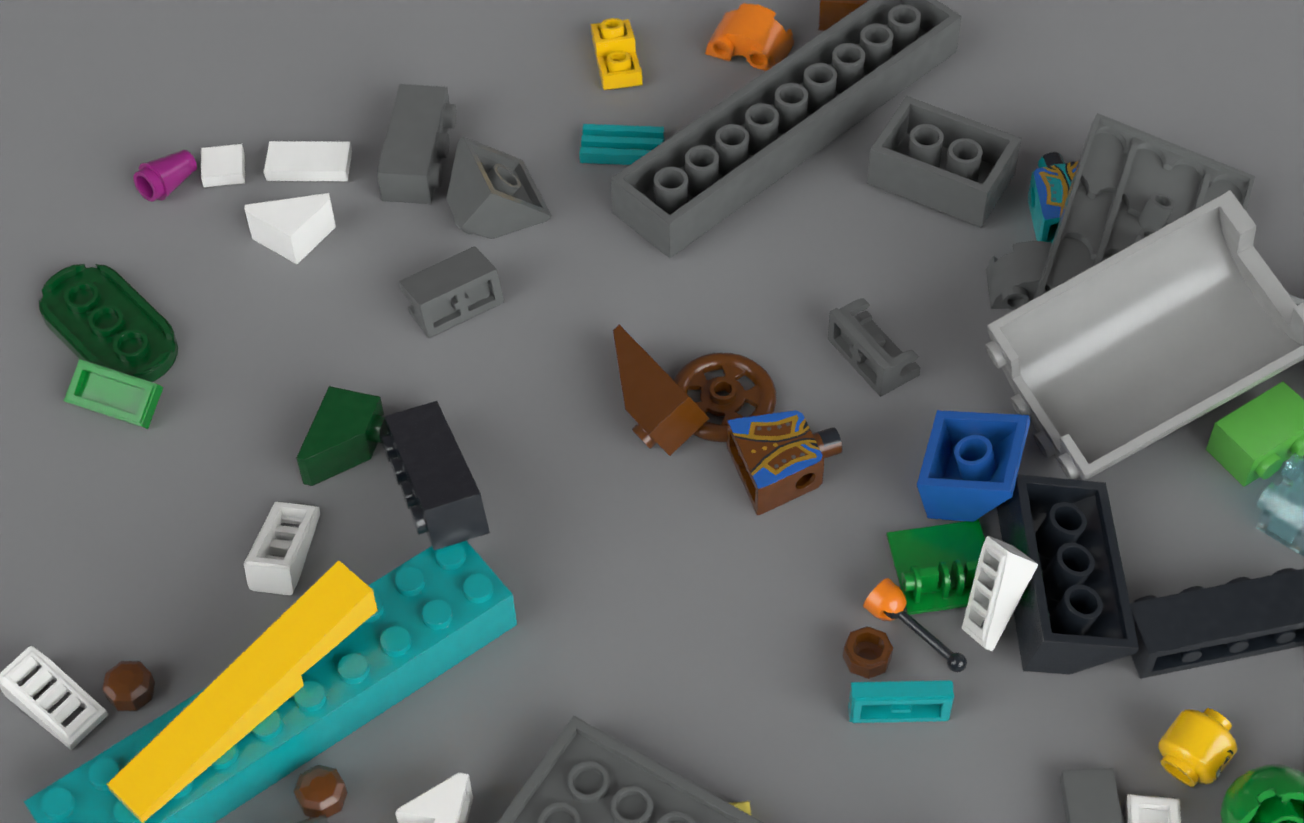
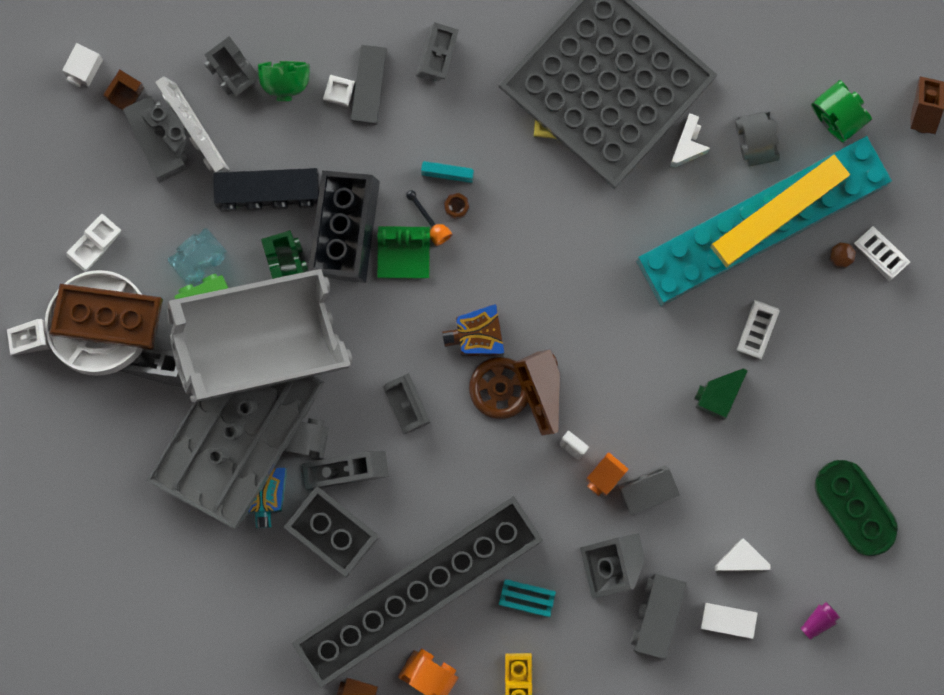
camera: 175 degrees left, 30 degrees up
(113, 394) = (851, 448): tile -> none
(222, 165) = (783, 626): white tile -> none
(320, 791) = (746, 177): reddish brown tile -> none
(434, 476) = (672, 341): black brick -> none
(520, 293) = (606, 475): none -> orange slope
(582, 295) = (573, 445): none -> white tile
(939, 245) = (346, 469): none -> dark grey slope
(971, 463) = (375, 298): blue slope -> none
(996, 590) = (384, 217): white slope -> none
(1149, 508) = (283, 255): none -> dark green cylinder
(1197, 746) = (306, 121): yellow head -> none

